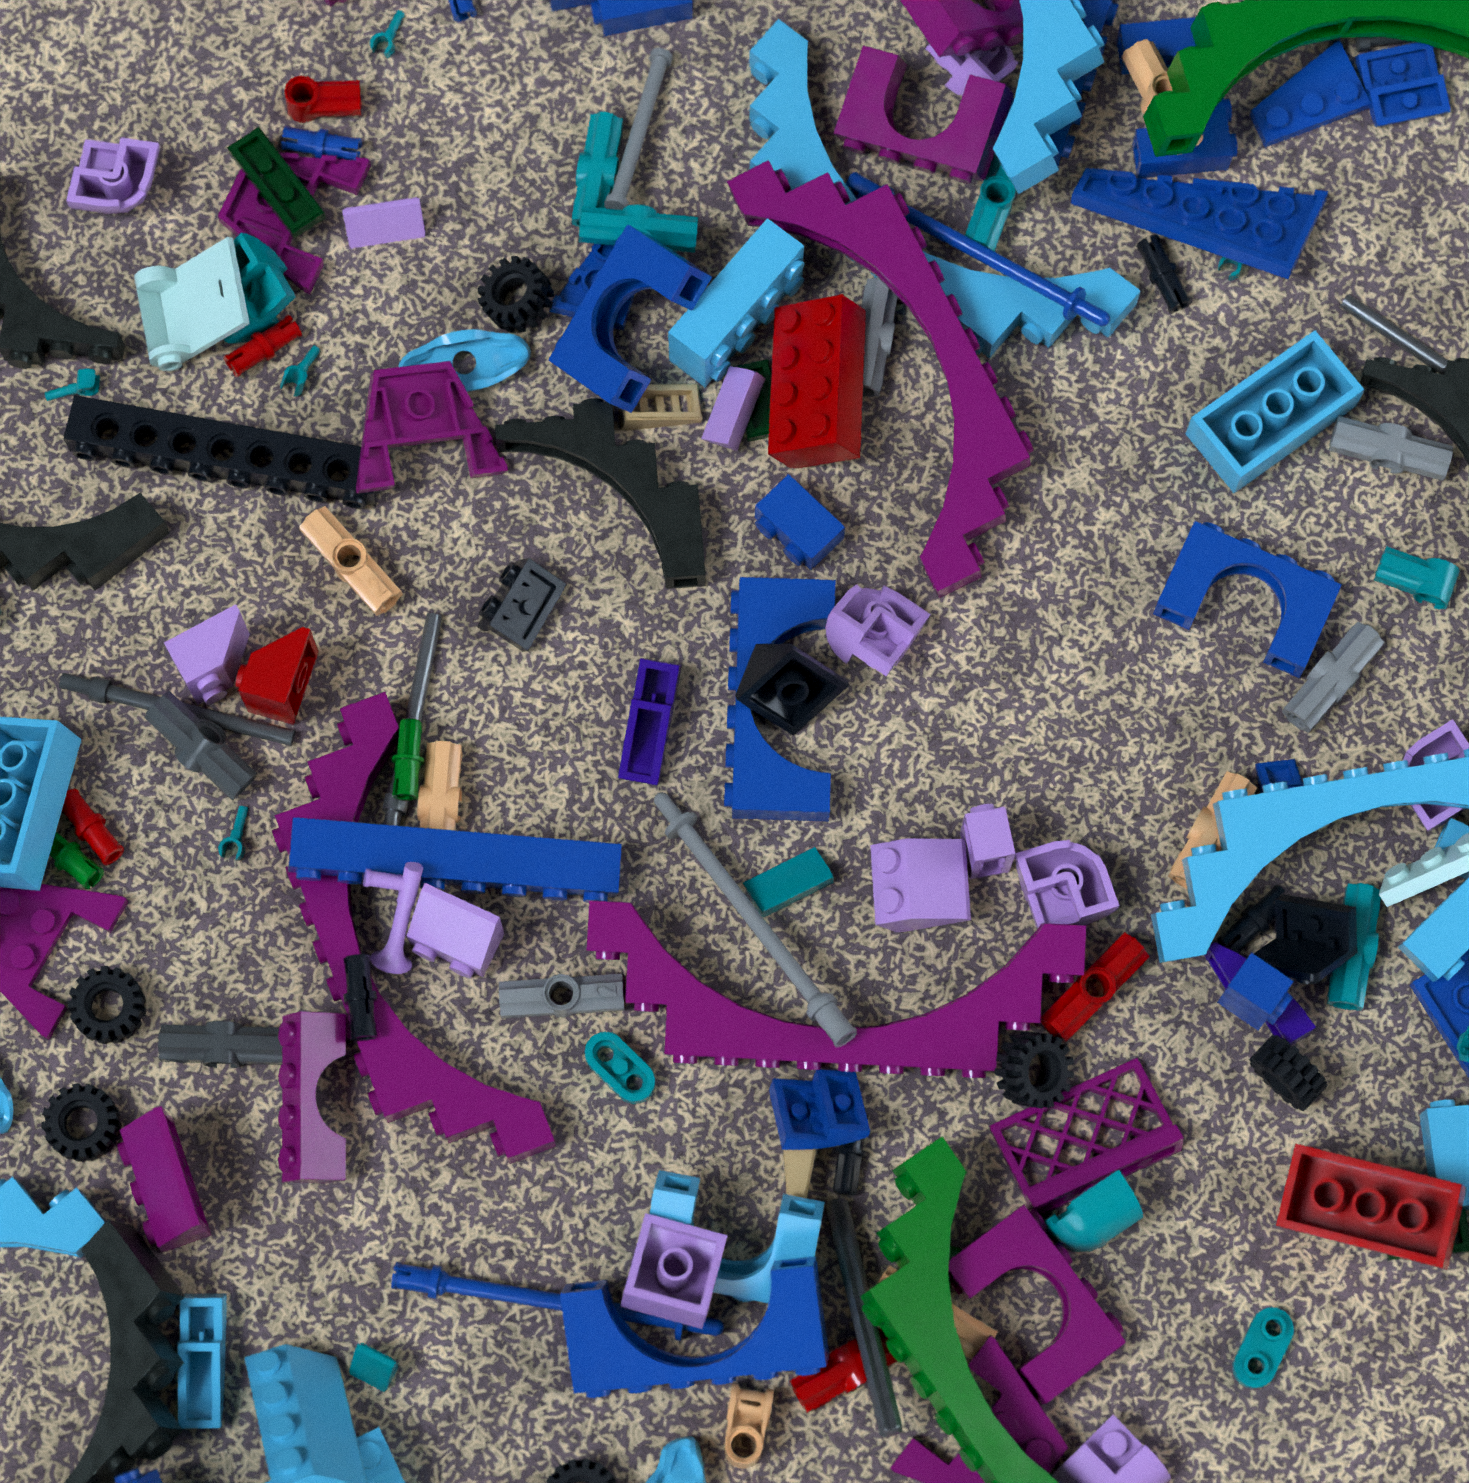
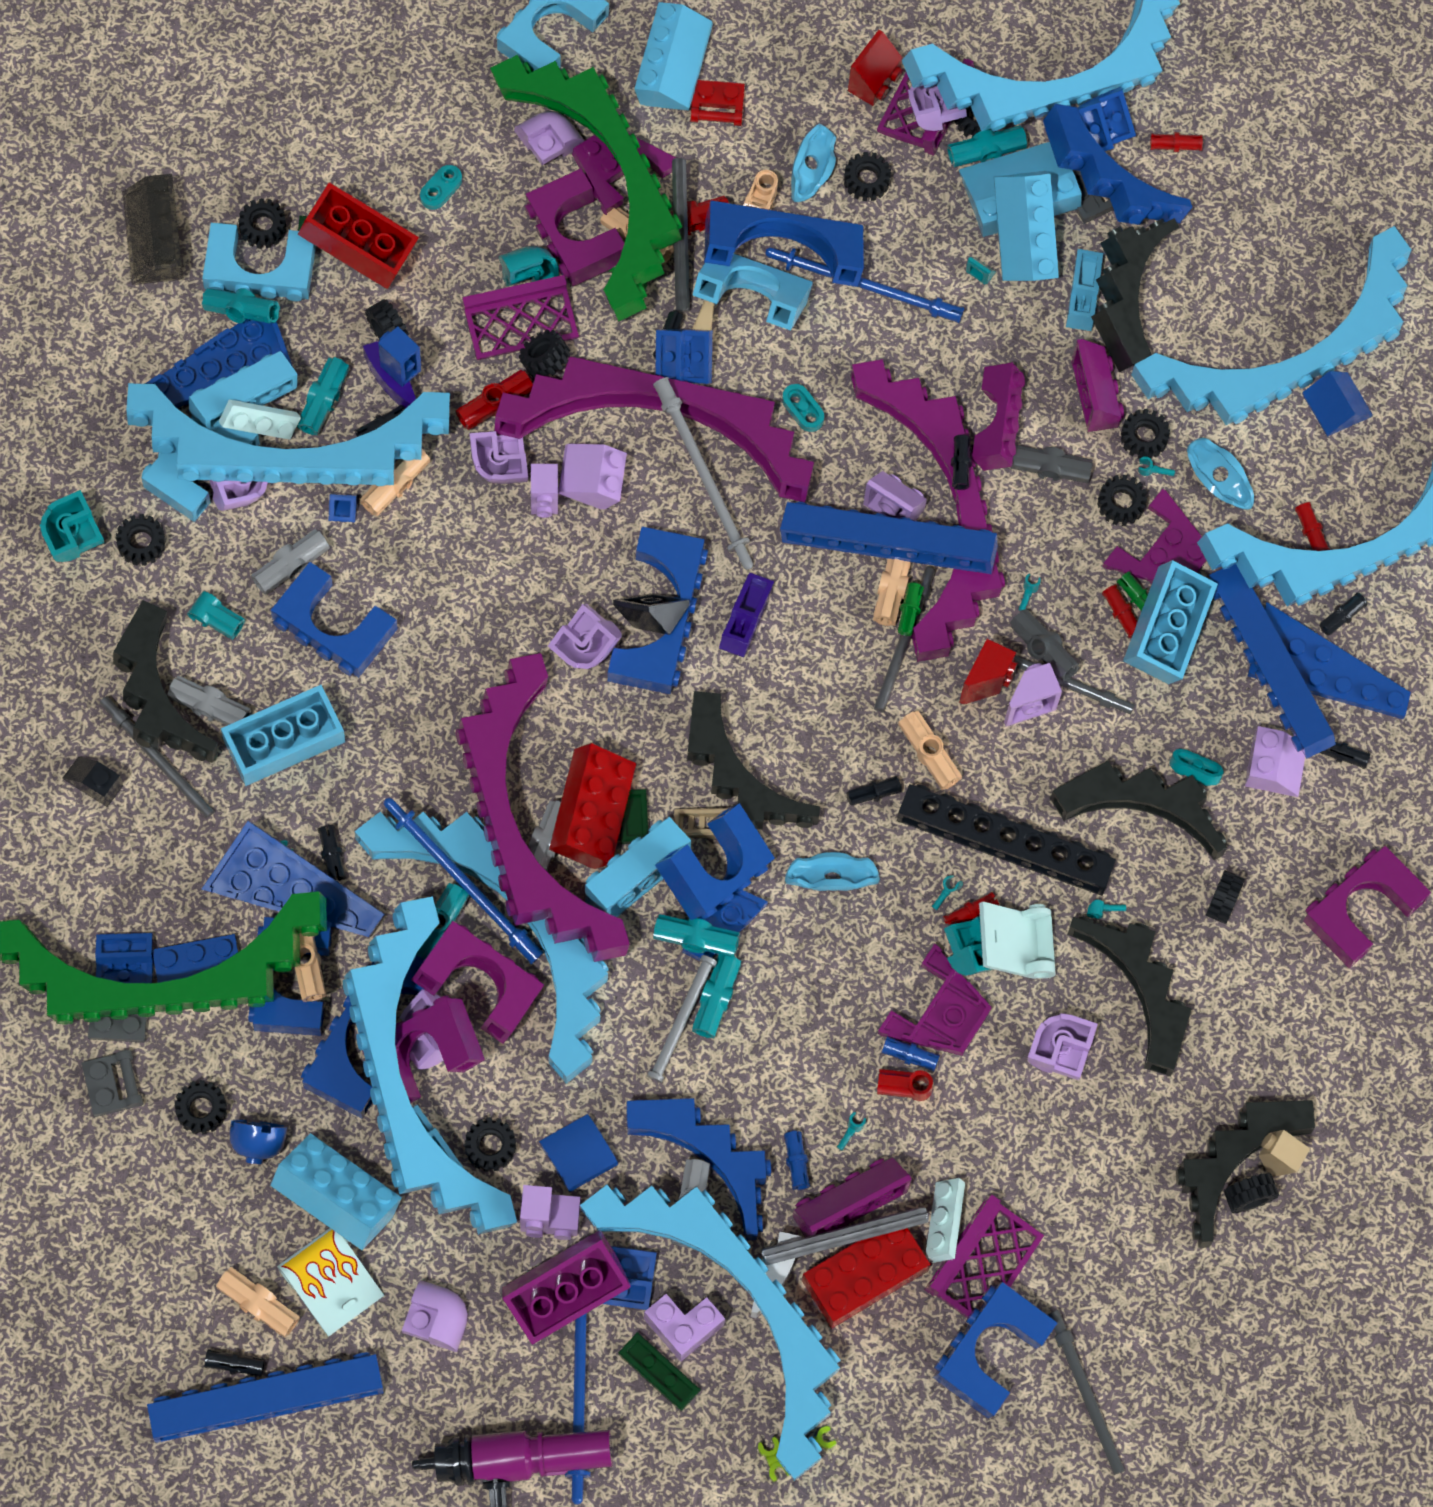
camera: 175 degrees left, 5 degrees down
(60, 1072) = (1153, 468): none -> teal hand
(276, 182) = (947, 1021): dark green tile -> none
(384, 222) = (874, 987): lavender slope -> none
(392, 956) = (937, 496): lavender piece -> none
(419, 408) = (873, 835): magenta wing -> none
(424, 491) = (874, 791): none -> black axle
(503, 281) = (803, 905): black tyre -> none
(521, 603) = (820, 704): black bracket -> none
(533, 996) = (849, 456): light grey piece -> none
(673, 1271) = (792, 267): lavender slope -> none
(733, 407) = (653, 806): lavender slope -> none
(788, 882) = (674, 499): teal slope -> none
(798, 523) = (623, 722): blue brick -> none
(1310, 938) = (358, 388): black bracket -> none

